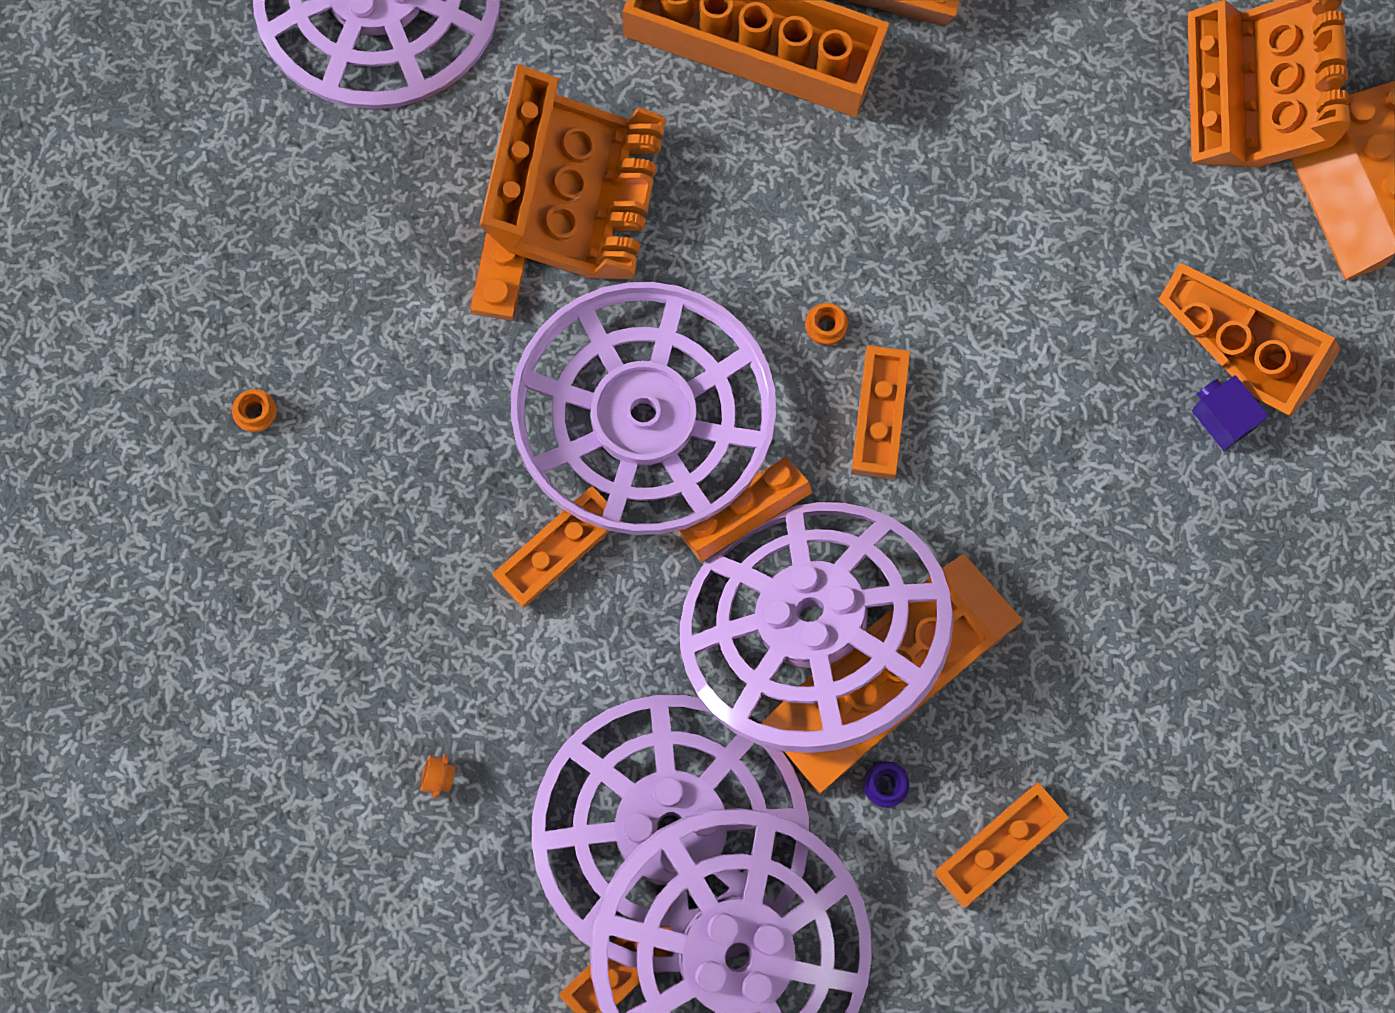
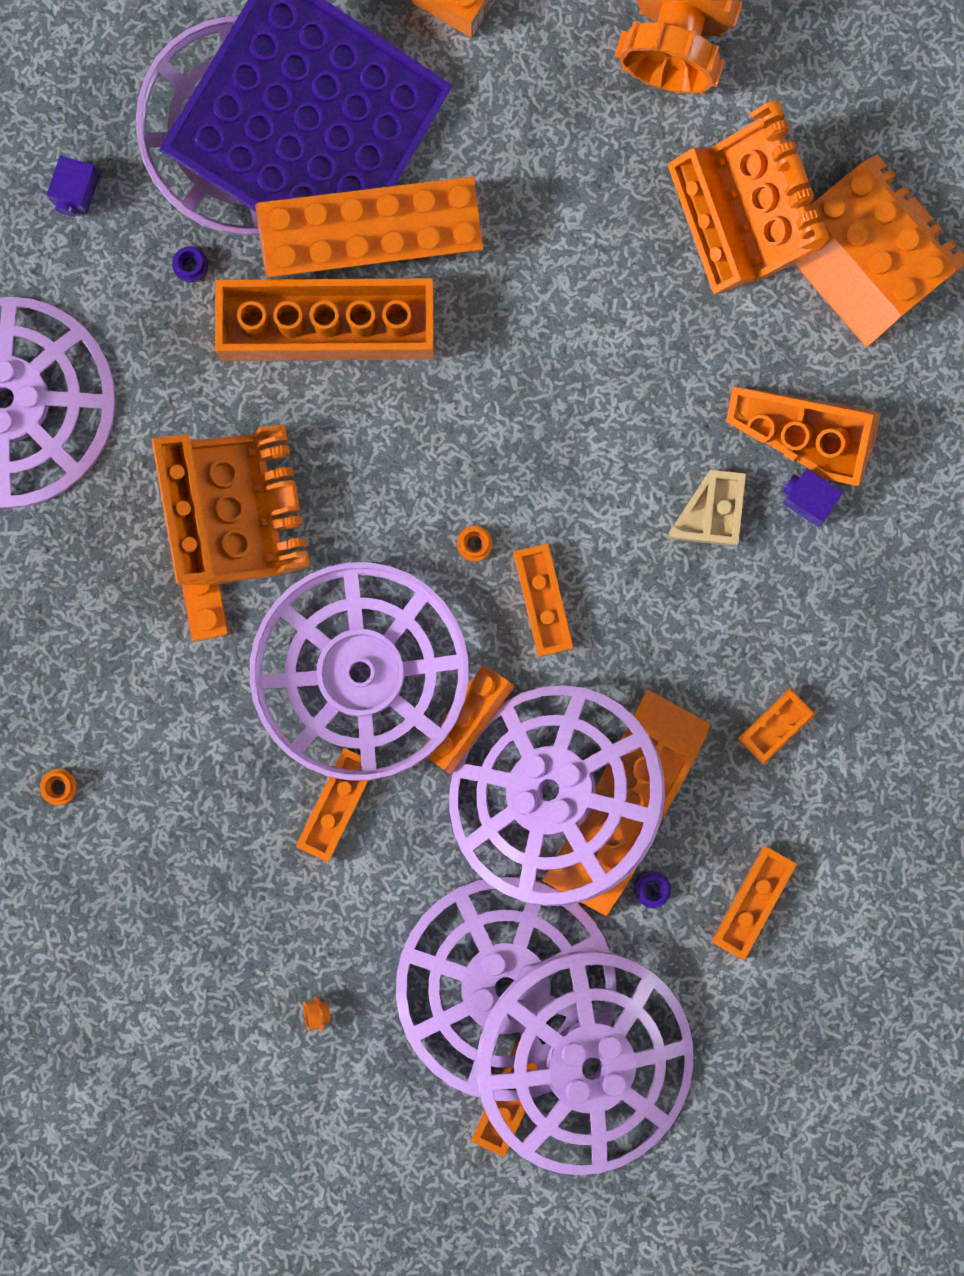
camera: 15 degrees left, 10 degrees up
(1099, 652) = (776, 726): none -> orange plate
(1110, 387) = (713, 511): none -> tan wing

